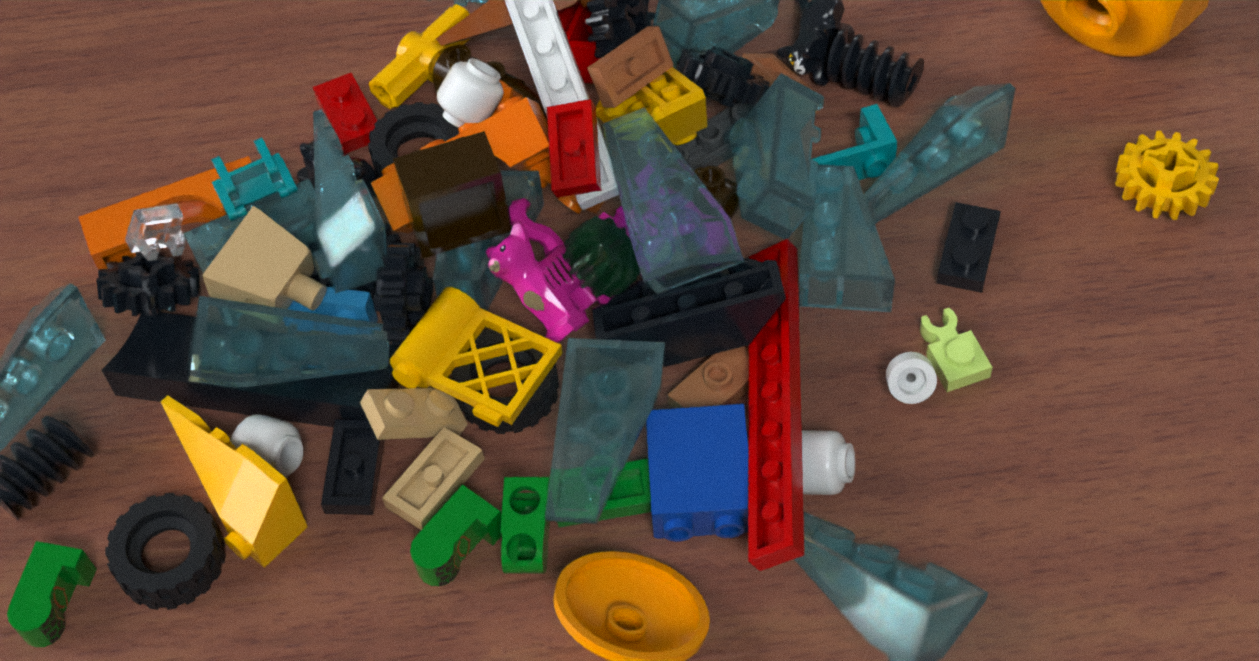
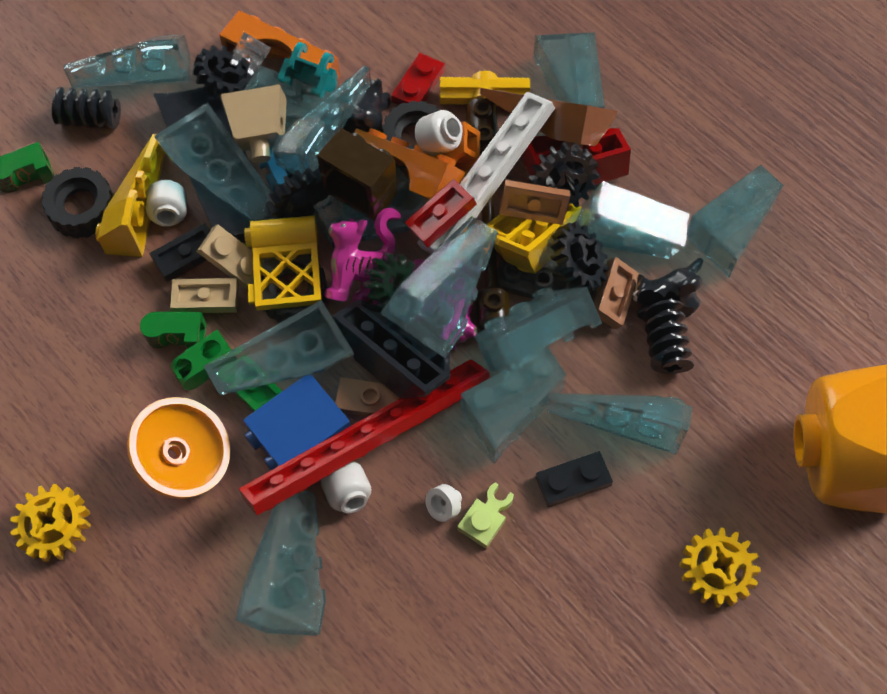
camera: 50 degrees right, 10 degrees up
(874, 148) = (591, 380): teal bracket -> none

